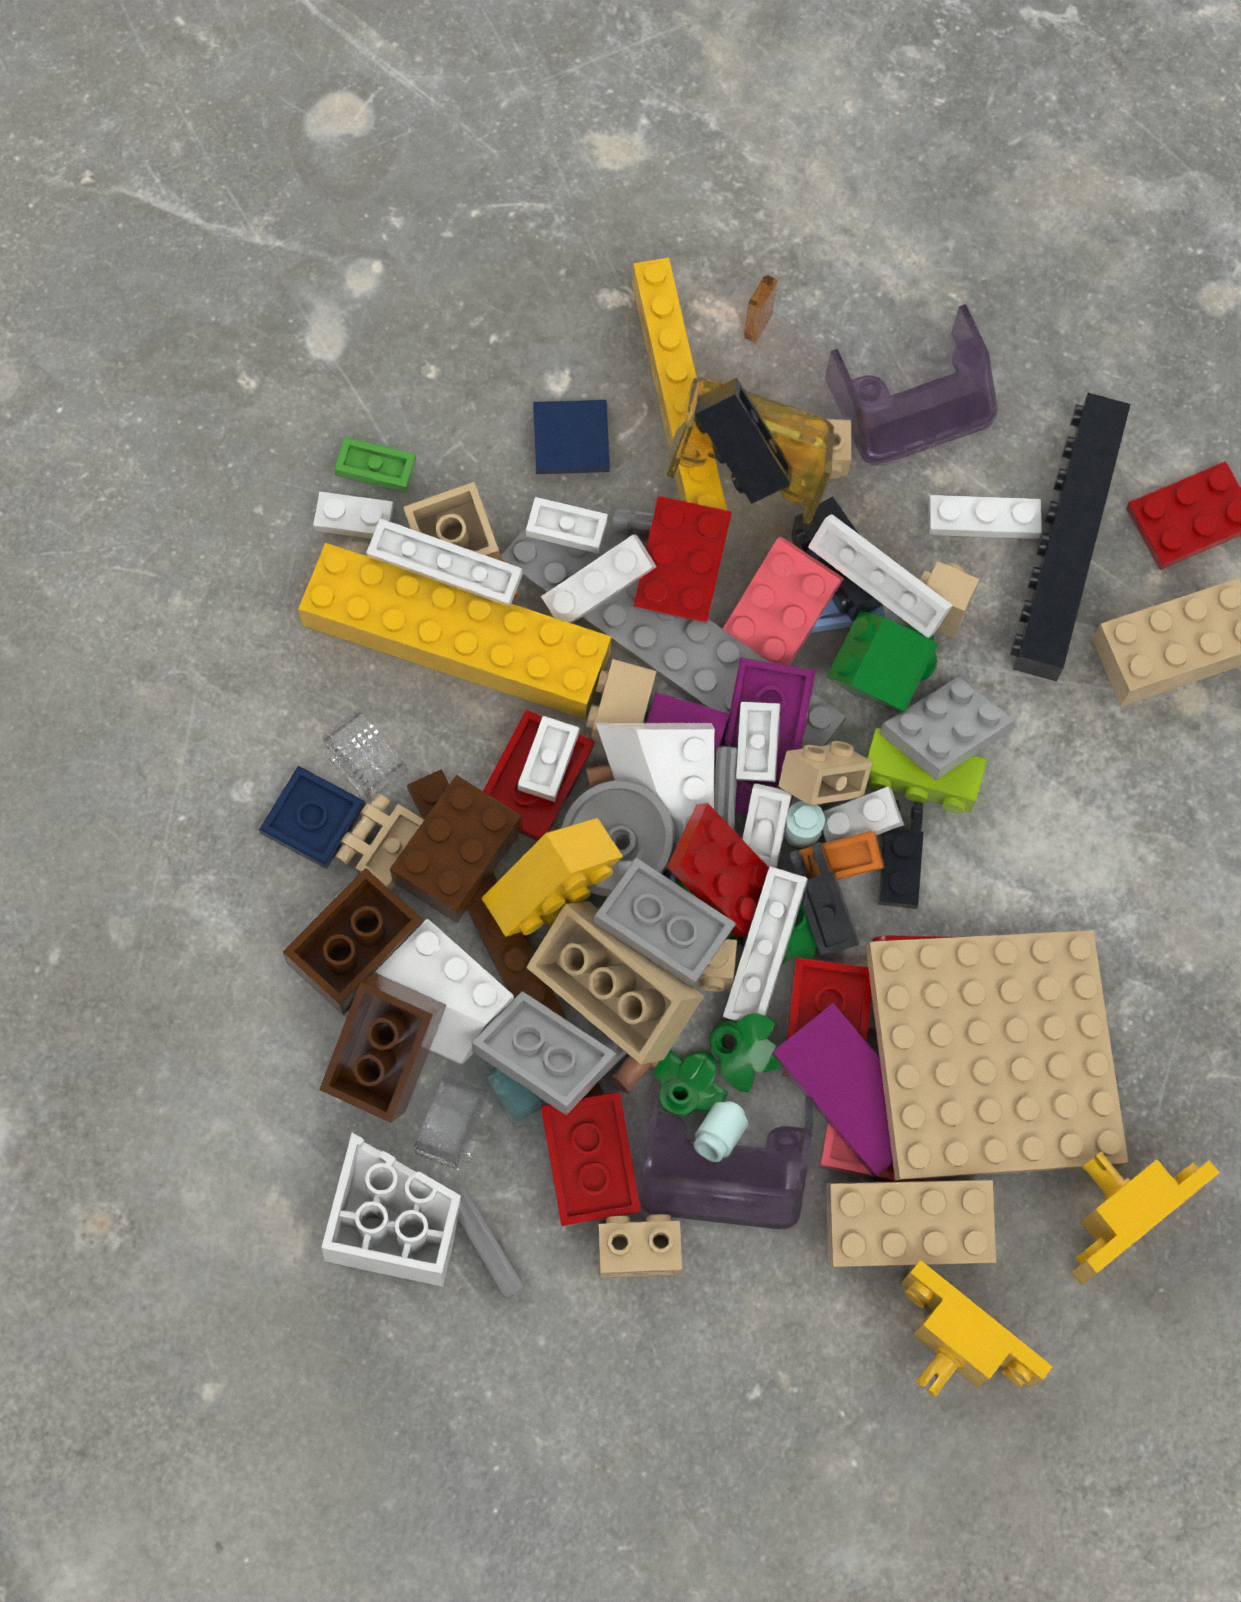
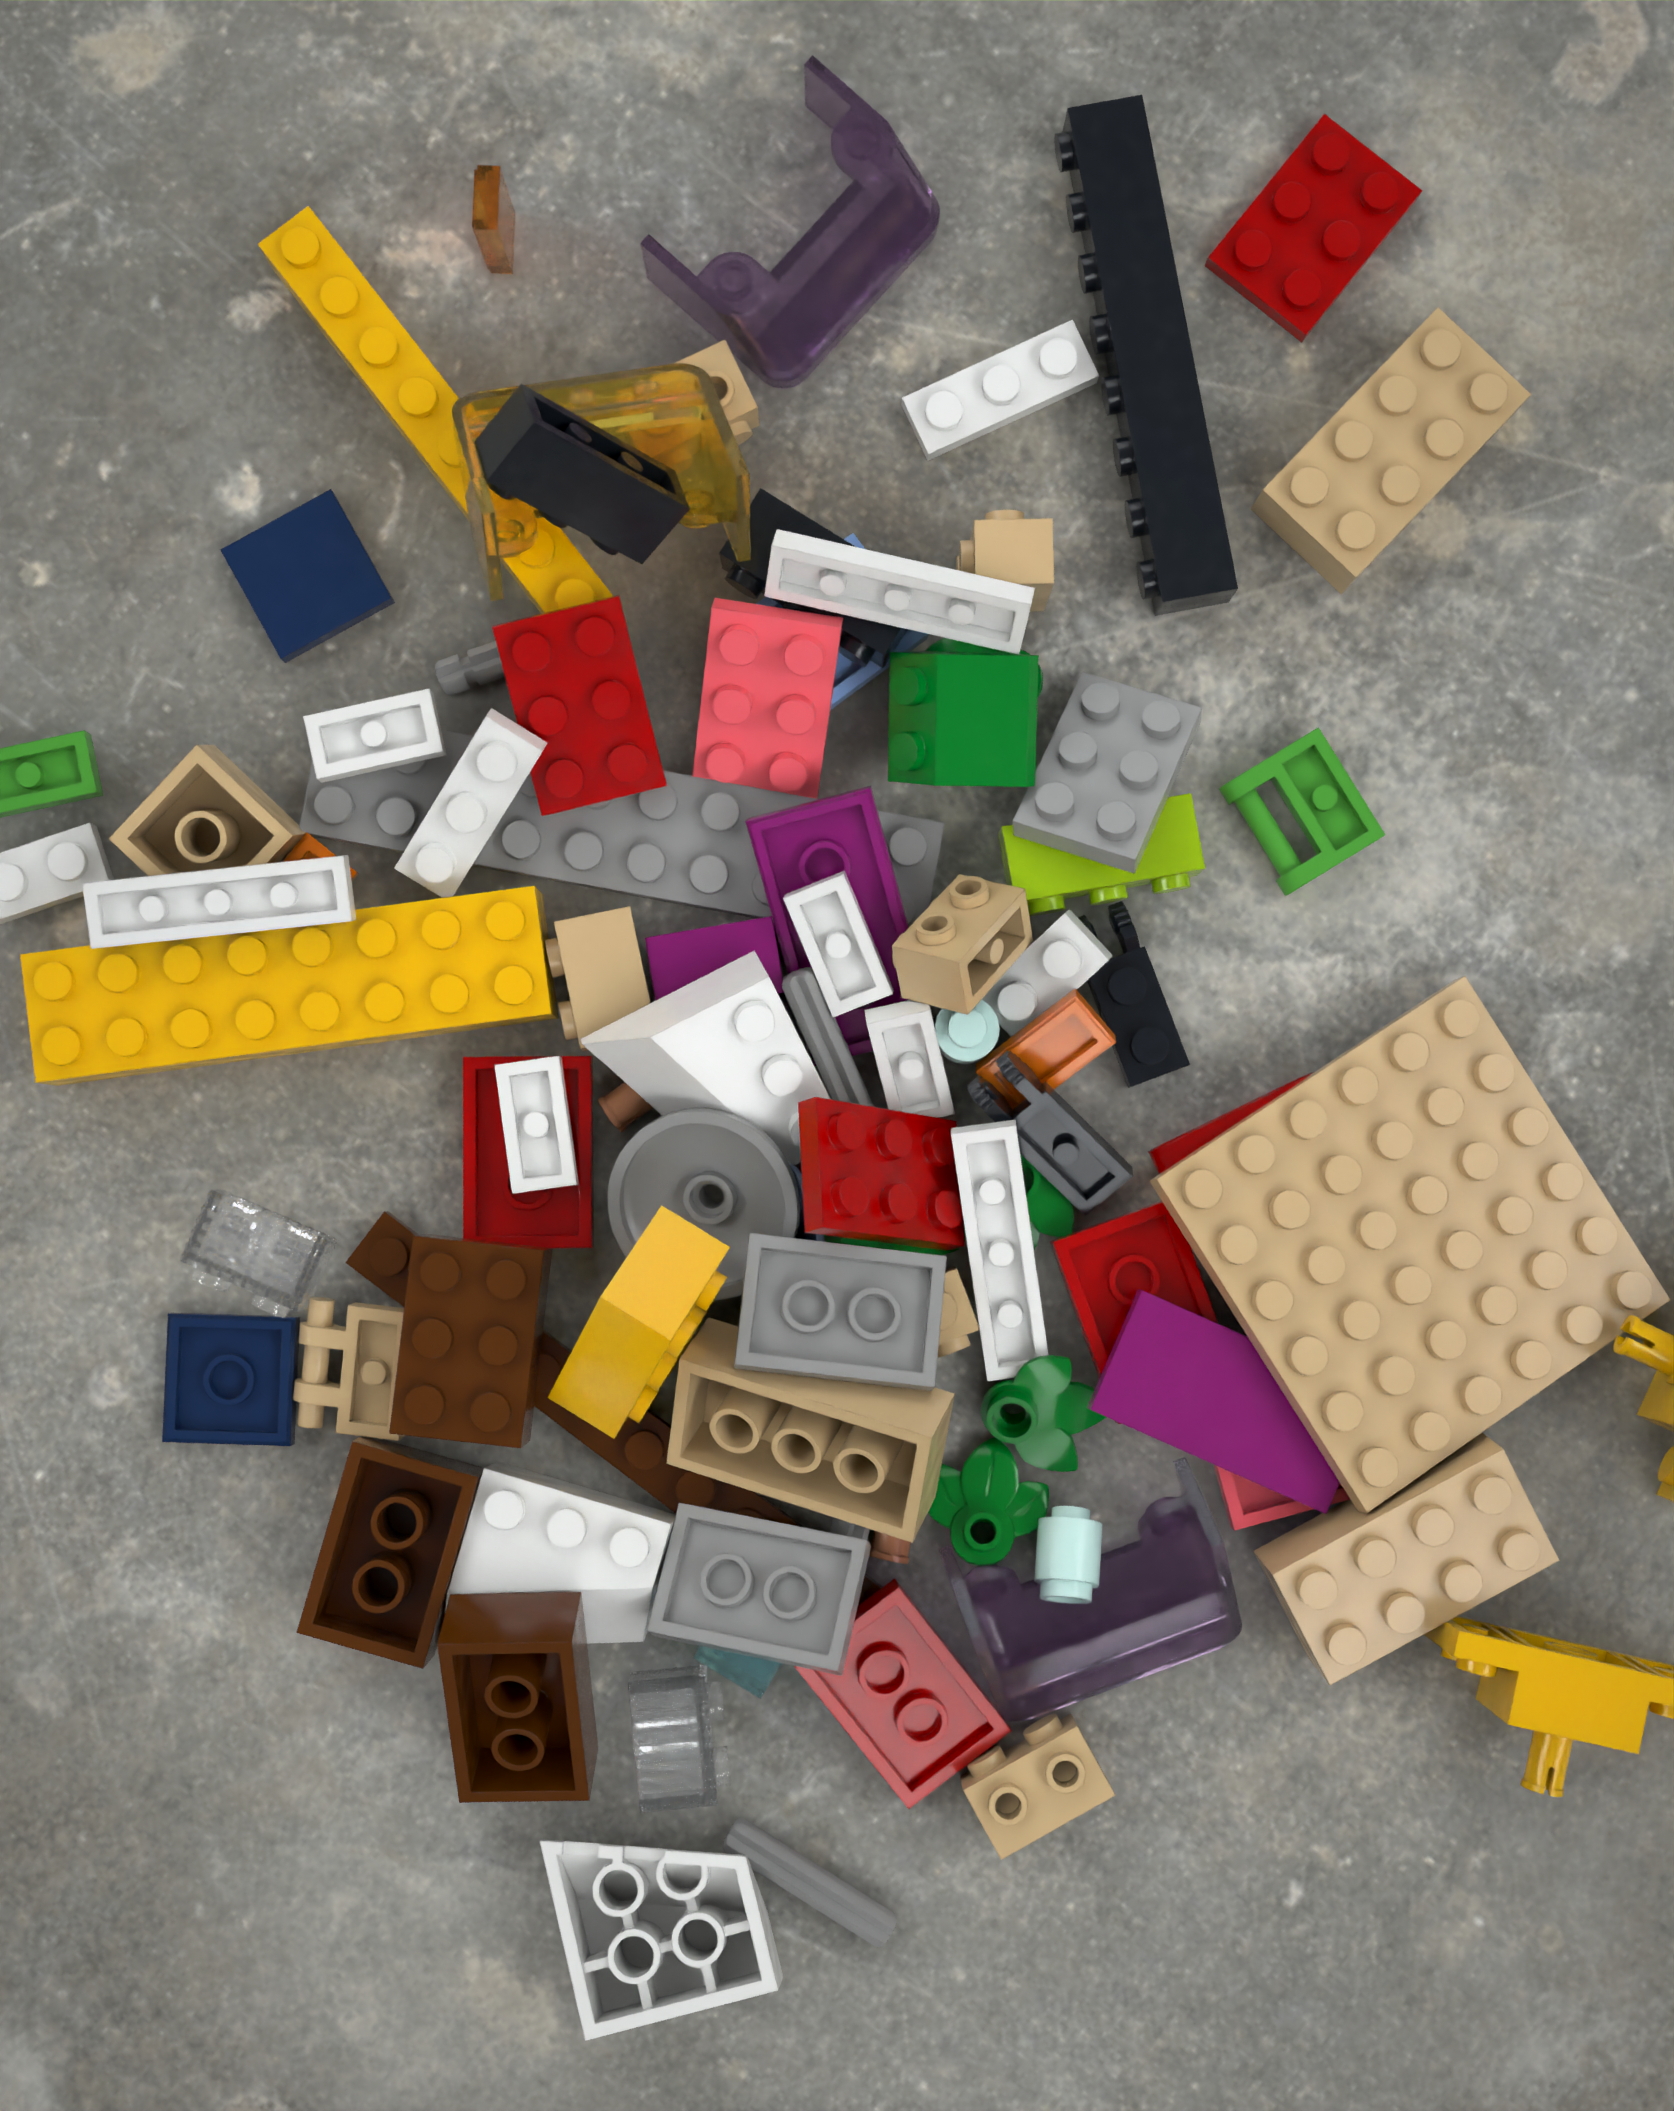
camera: 25 degrees left, 15 degrees up
(1056, 800) = (1320, 801): none -> bright green plate

